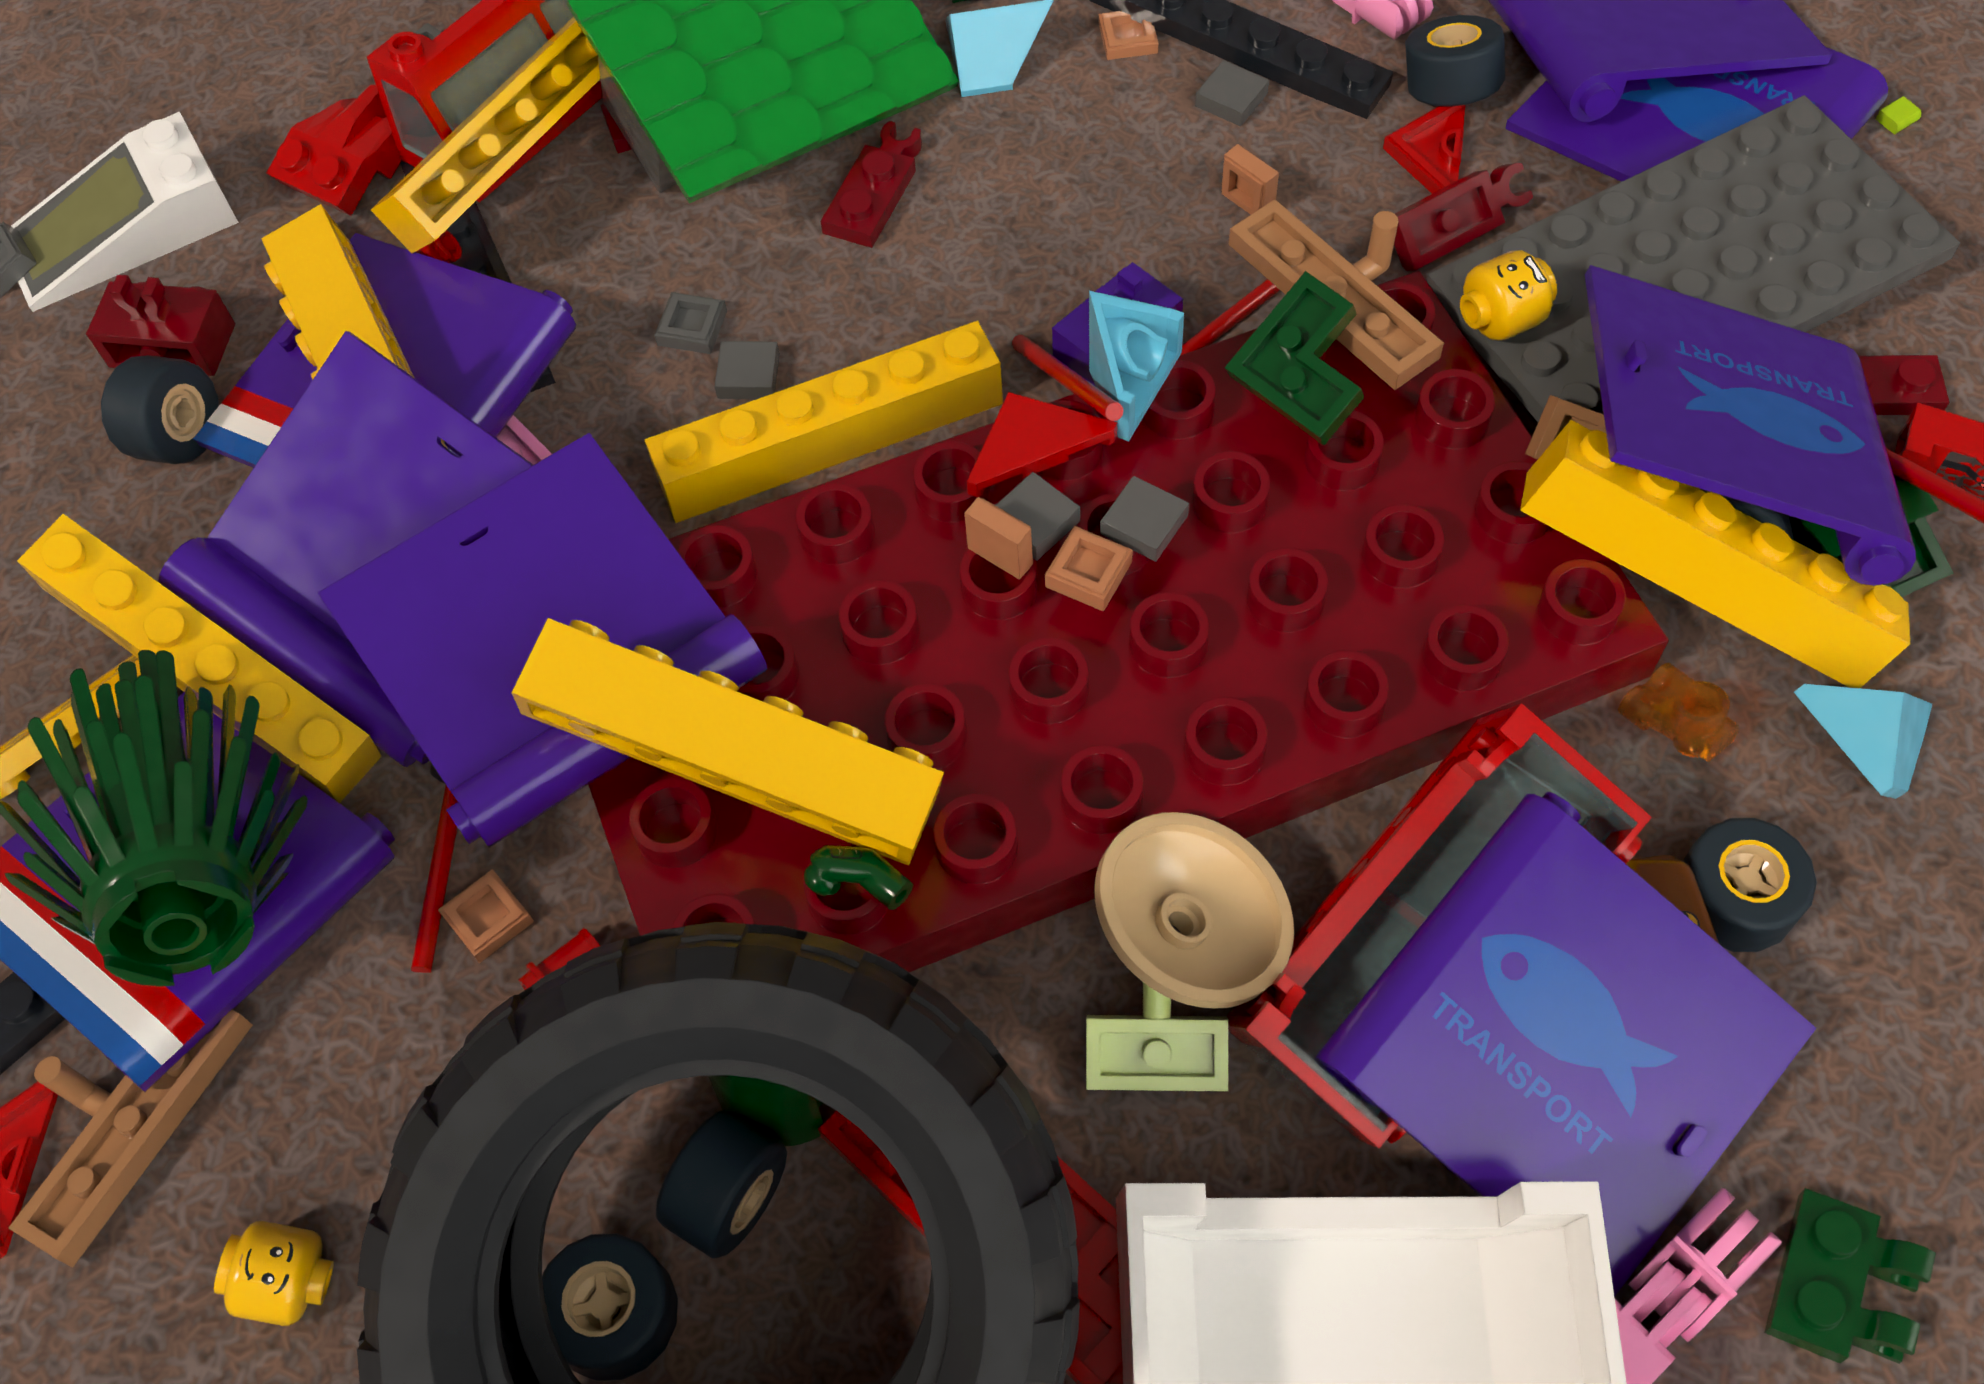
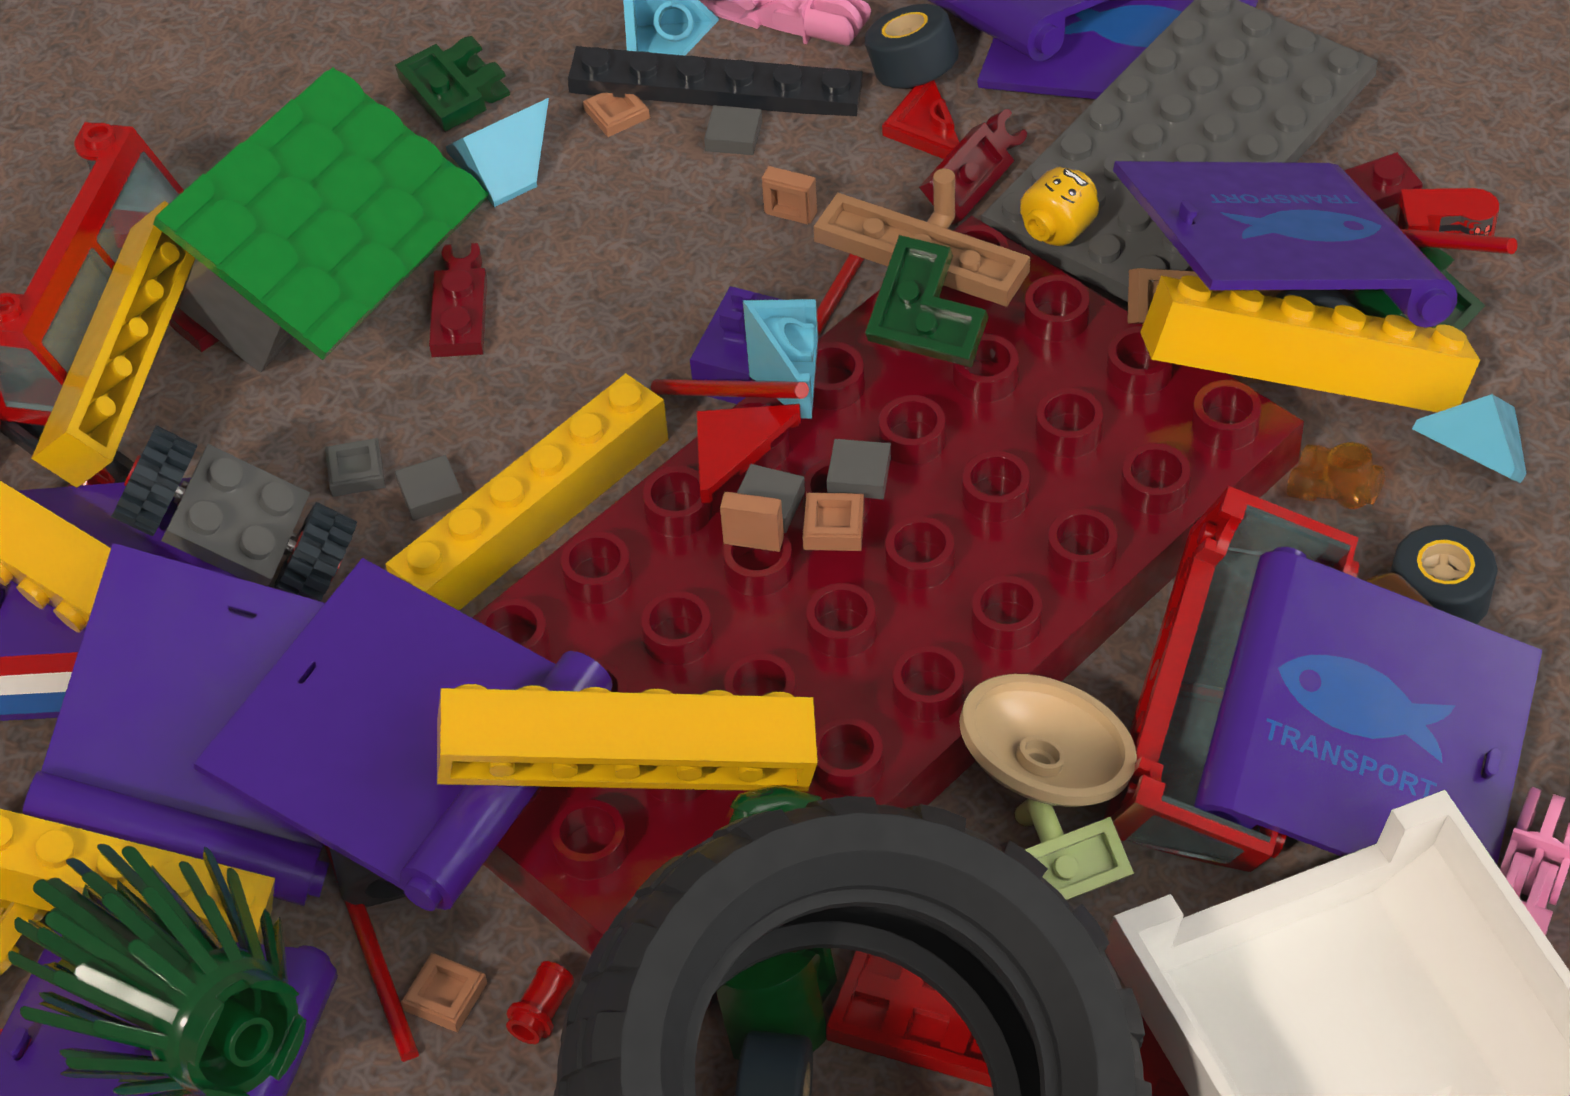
camera: 25 degrees left, 10 degrees down
(516, 335) = (234, 516): none -> plate

